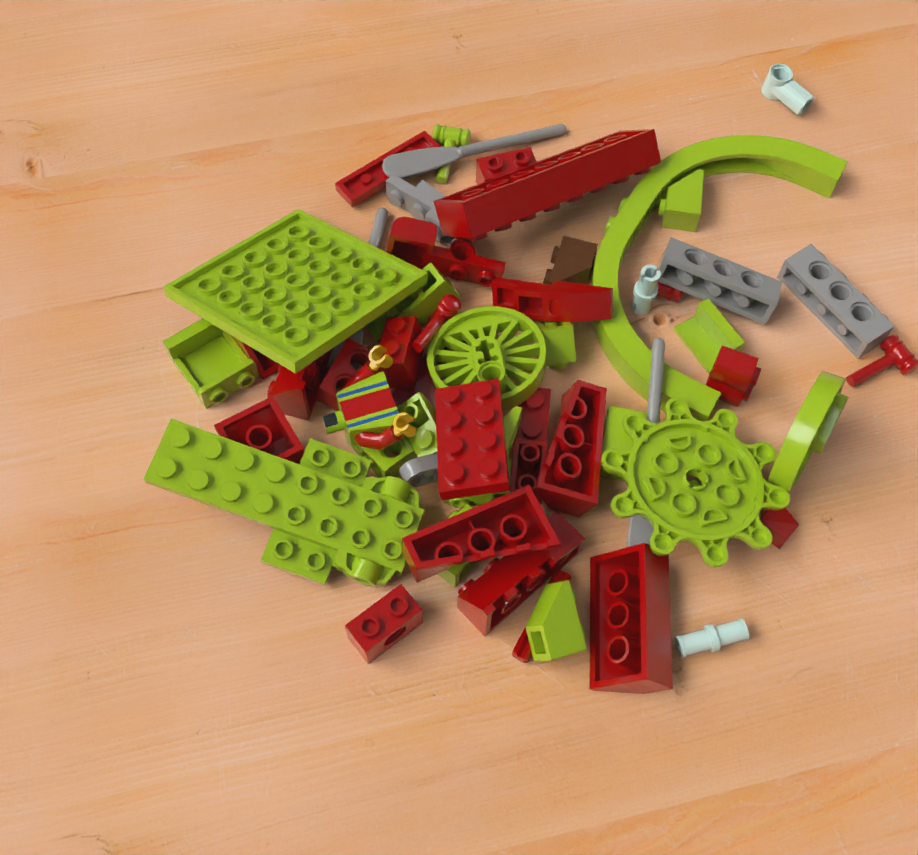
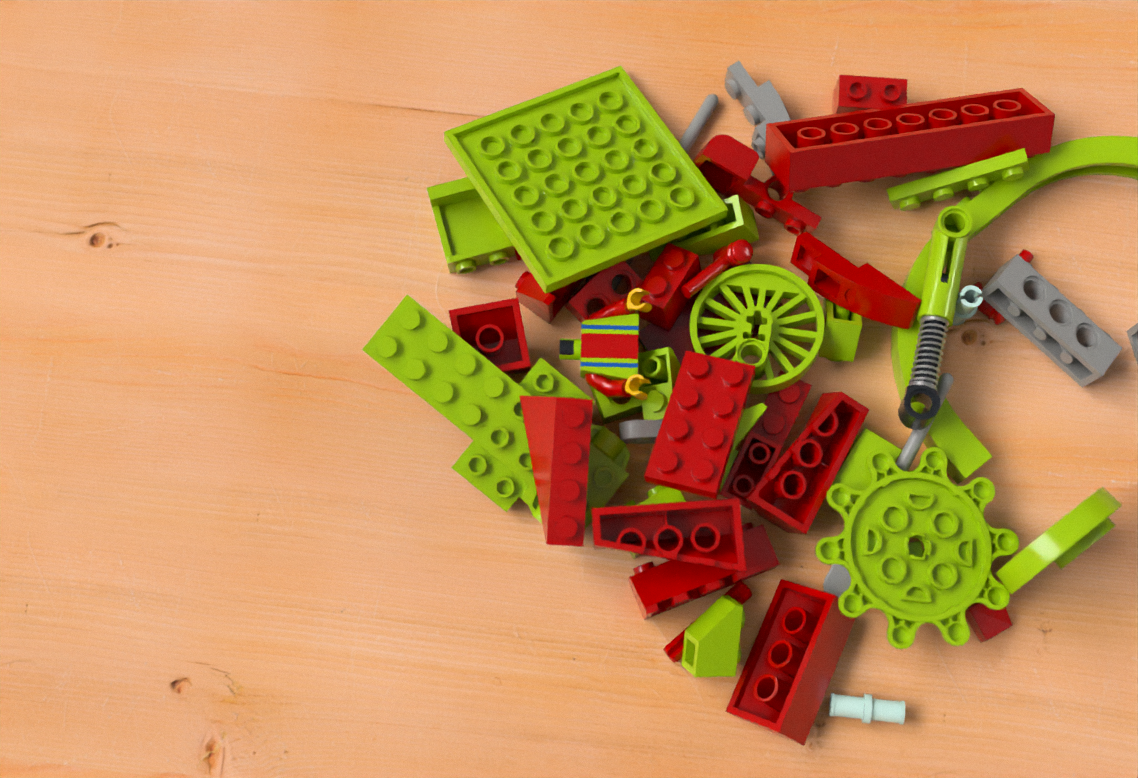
camera: 25 degrees right, 15 degrees up
(356, 506) = (559, 454): none -> red wedge
(371, 177) = (739, 44): red plate -> none
(384, 623) = (550, 575): red brick -> none
(425, 160) = (782, 51): light grey piece -> none
(450, 138) = (825, 27): lime piece -> none
(571, 261) = (897, 241): reddish brown slope -> none
(603, 200) = (971, 176): none -> lime plate
(629, 299) = (936, 314): none -> piece
(683, 203) = (1057, 205): lime slope -> none
(707, 333) = (1012, 381): lime panel -> none
(733, 375) = (1012, 442): red brick -> none

